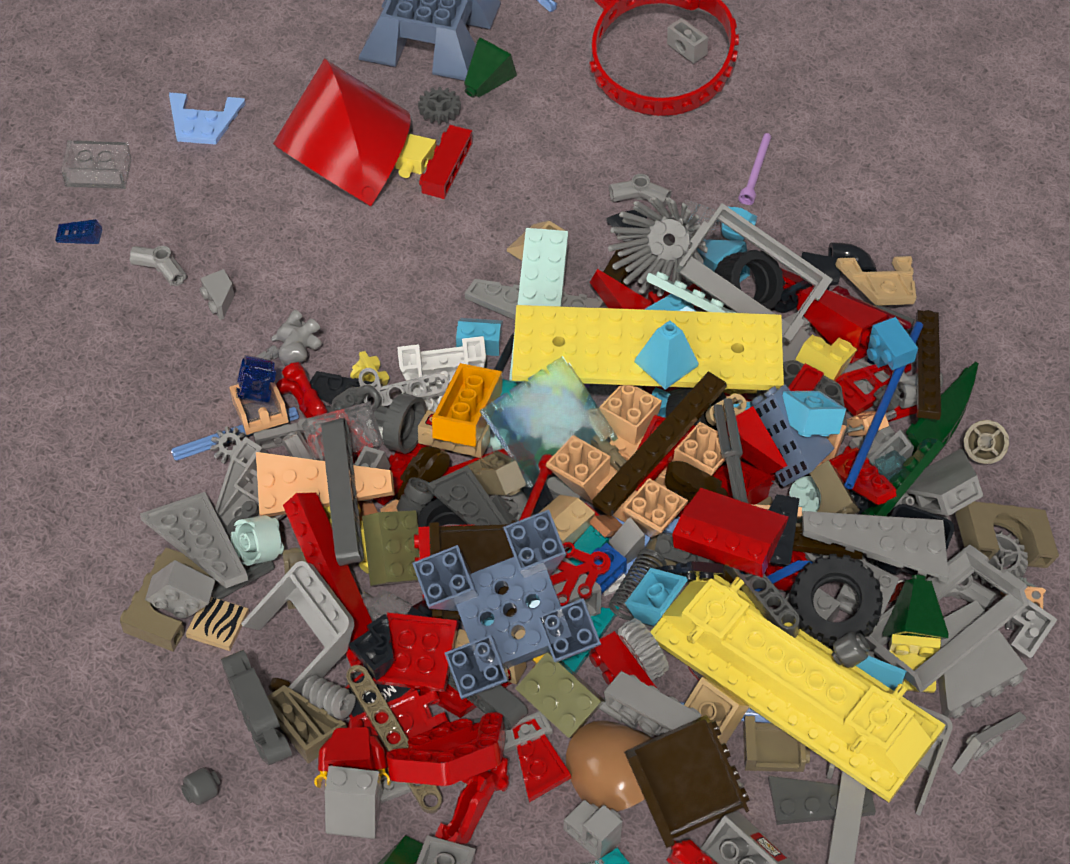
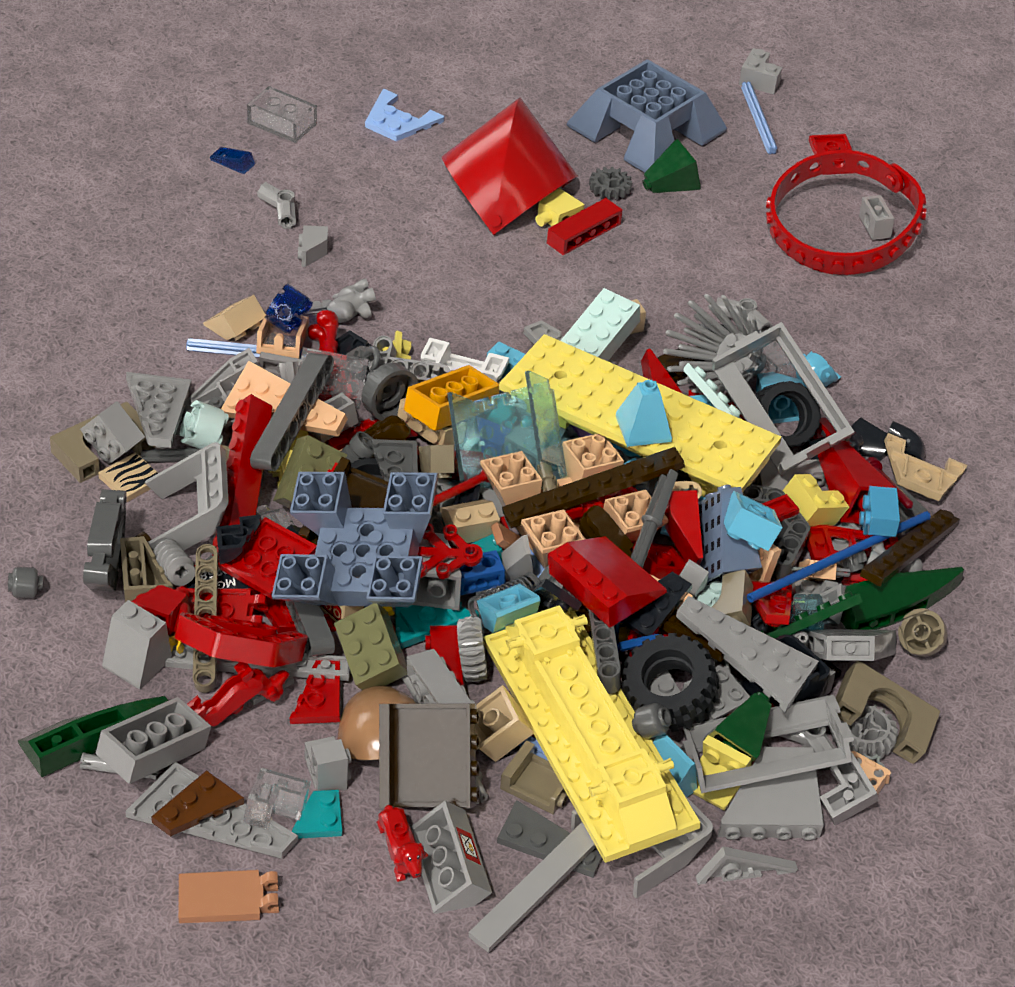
camera: 25 degrees right, 10 degrees down
(201, 406) = (237, 318): none -> tan slope
(222, 440) = (232, 347): light grey gear -> none
(748, 195) = (845, 356): lavender piece -> none
(783, 485) = (697, 576): none -> light grey slope

